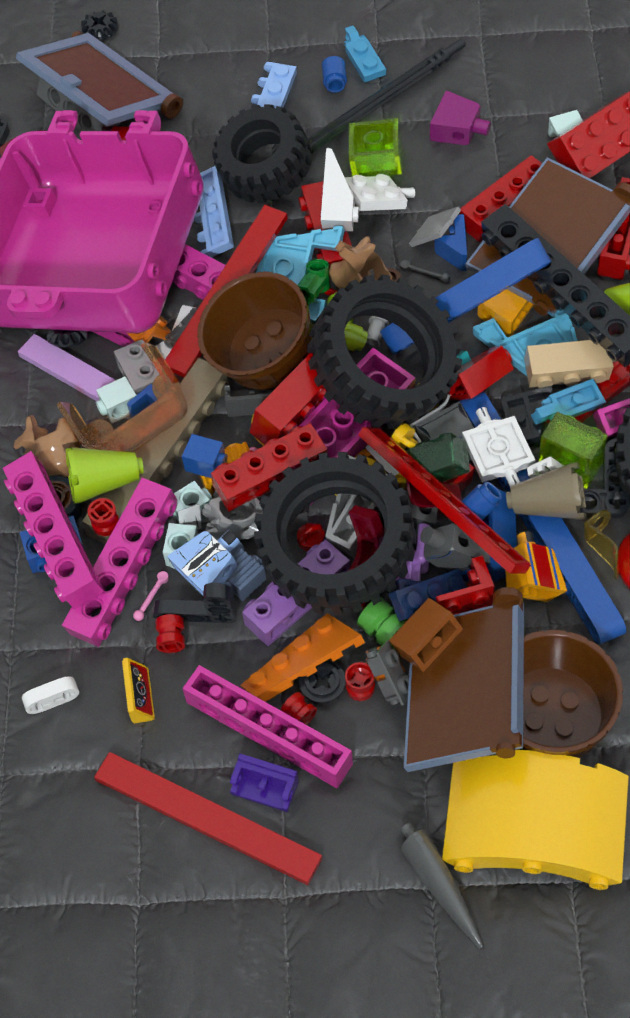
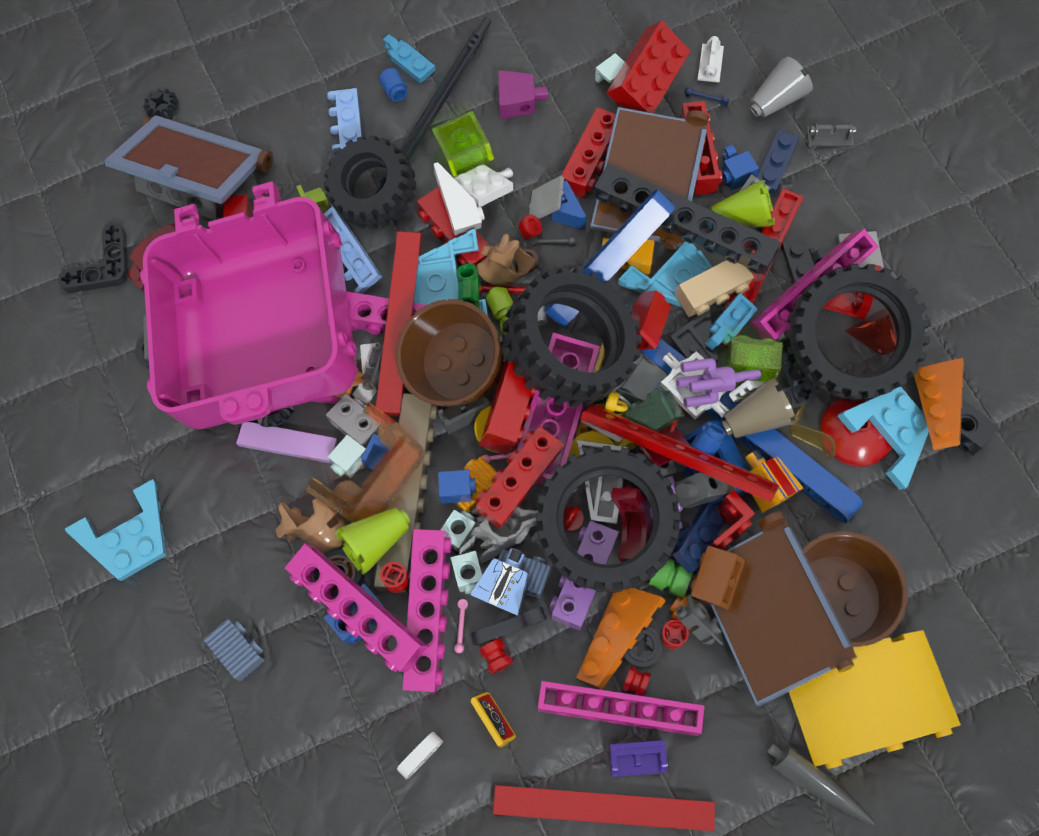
camera: 25 degrees left, 10 degrees up
(202, 156) = (317, 196): none -> lime panel
(406, 248) = (530, 227): none -> red tile
(515, 444) = (712, 380): none -> medium lavender plant

